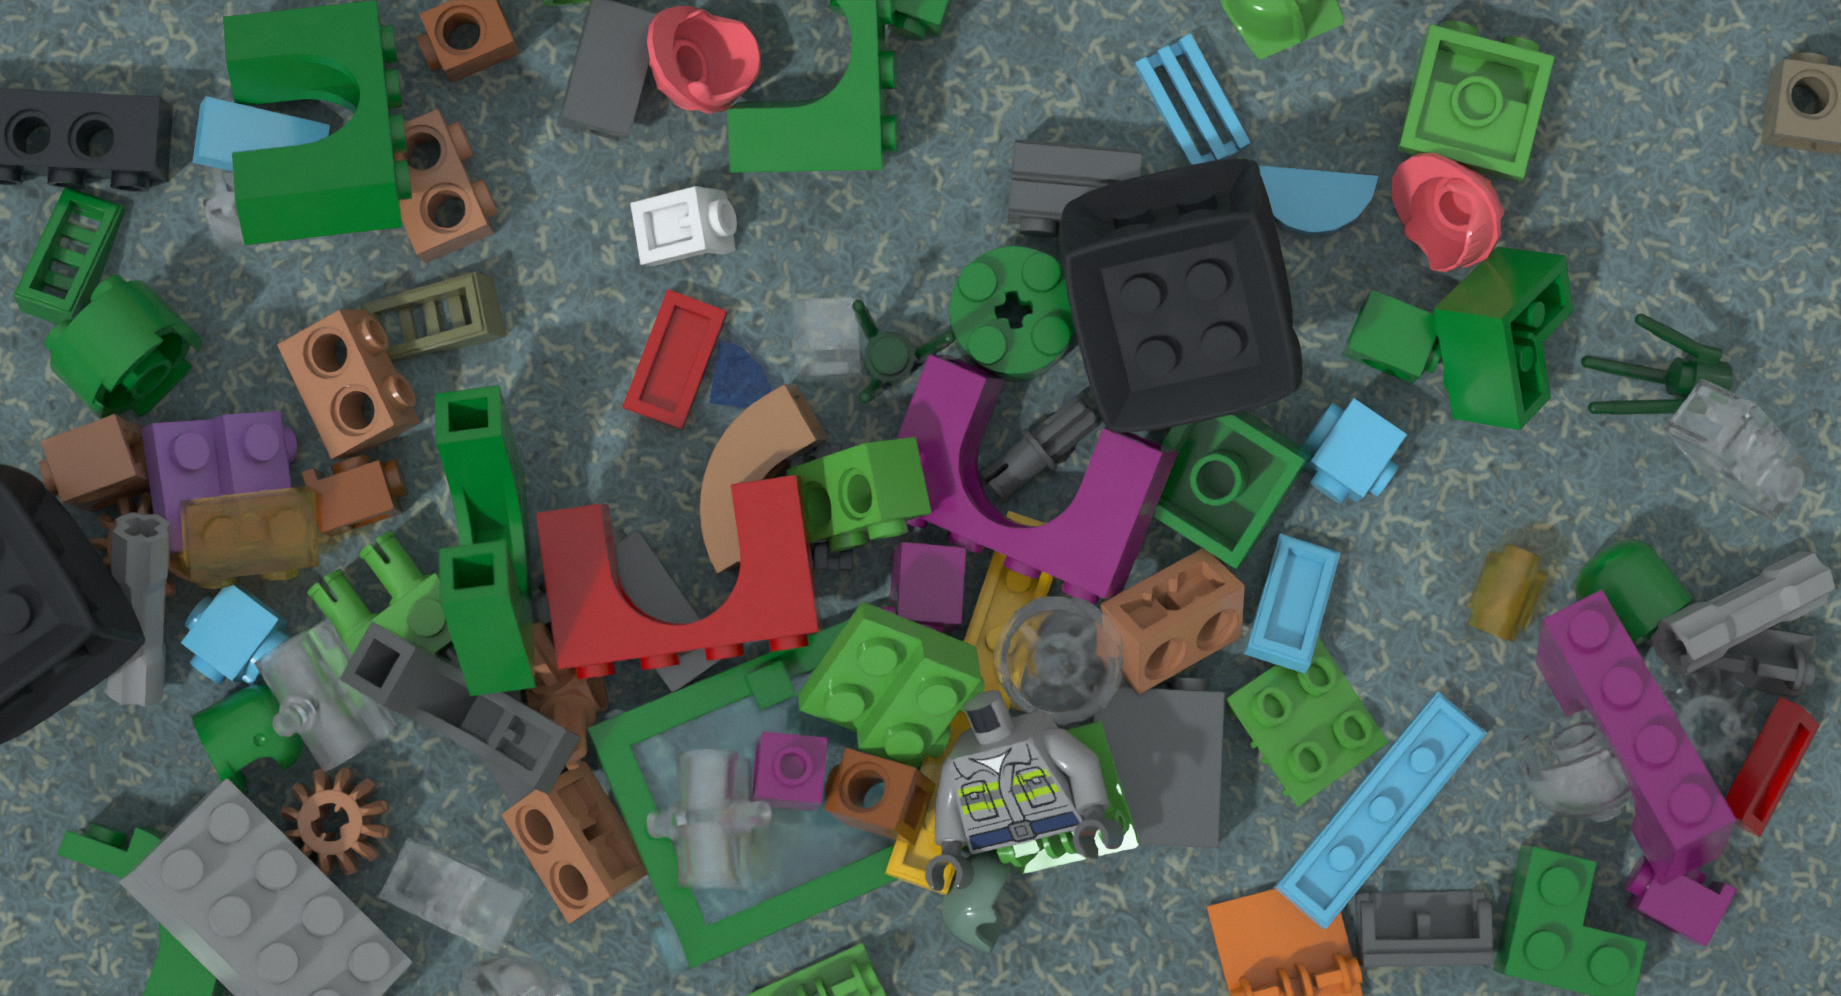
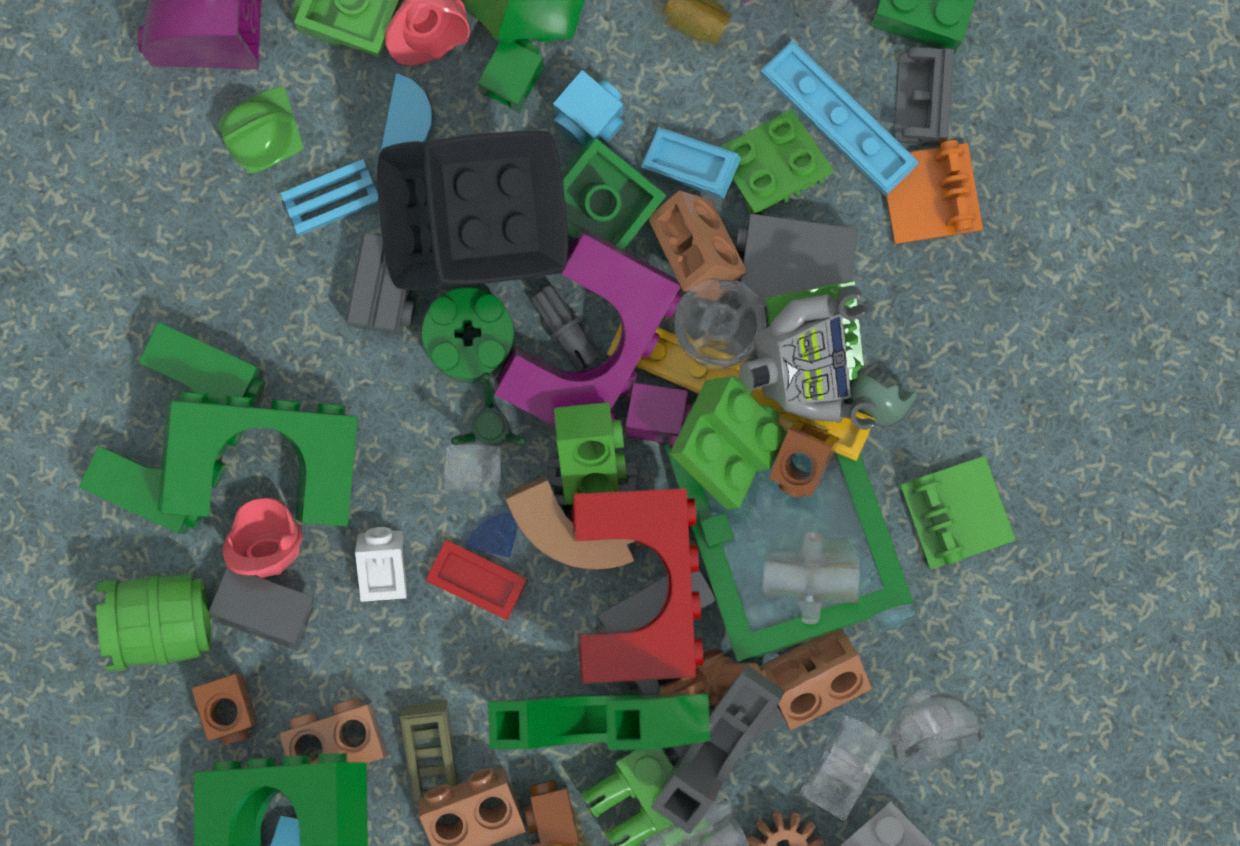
camera: 90 degrees left, 0 degrees up
(789, 770) = (780, 520): magenta brick -> none

